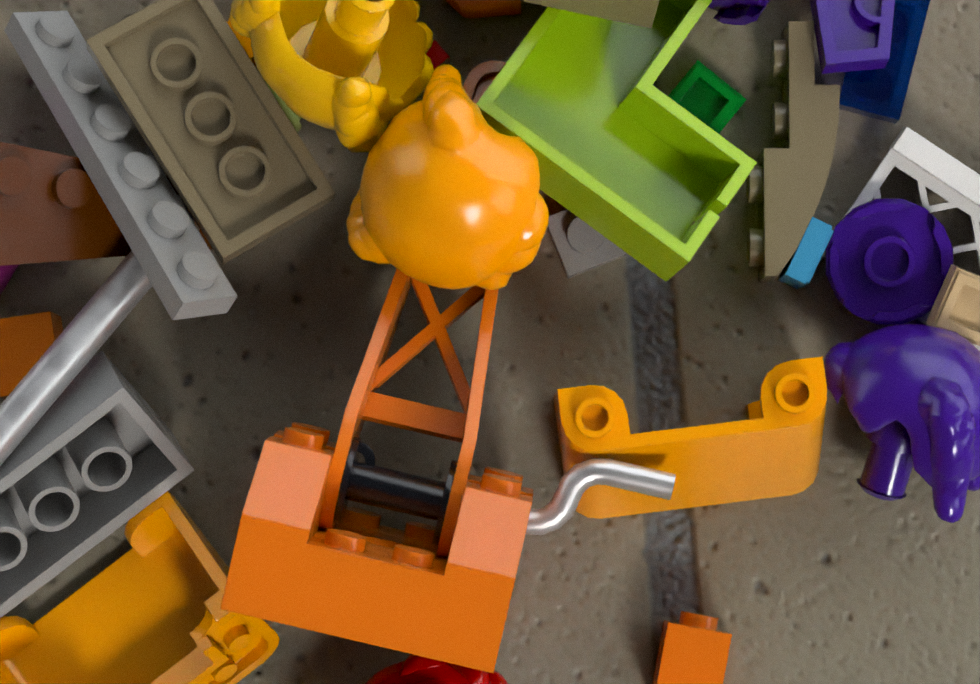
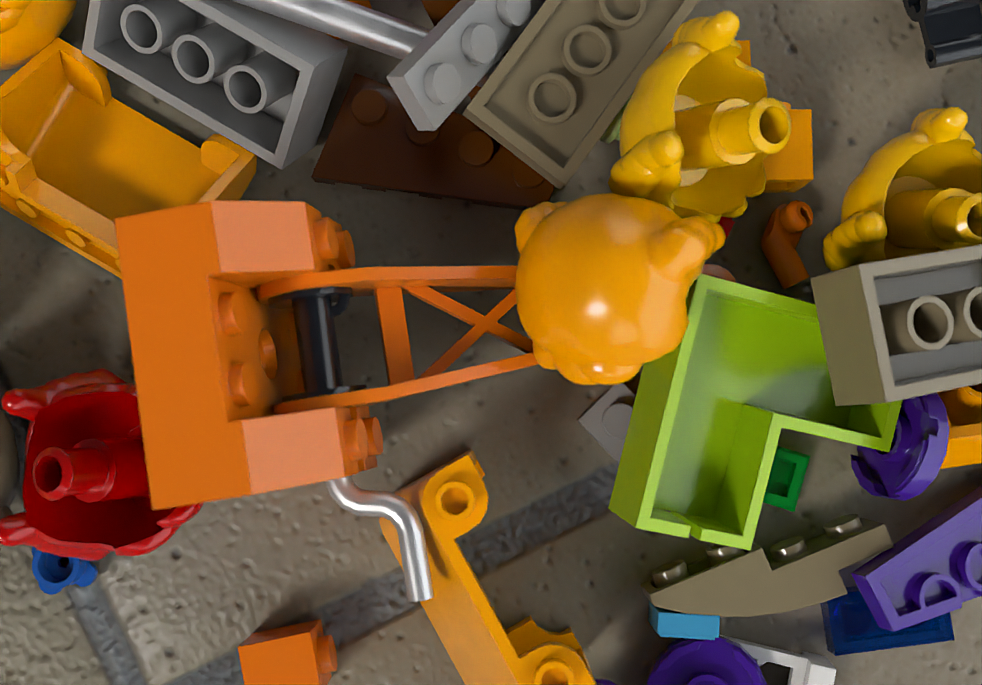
camera: 70 degrees right, 0 degrees up
(207, 361) = (382, 150): none -> reddish brown wing

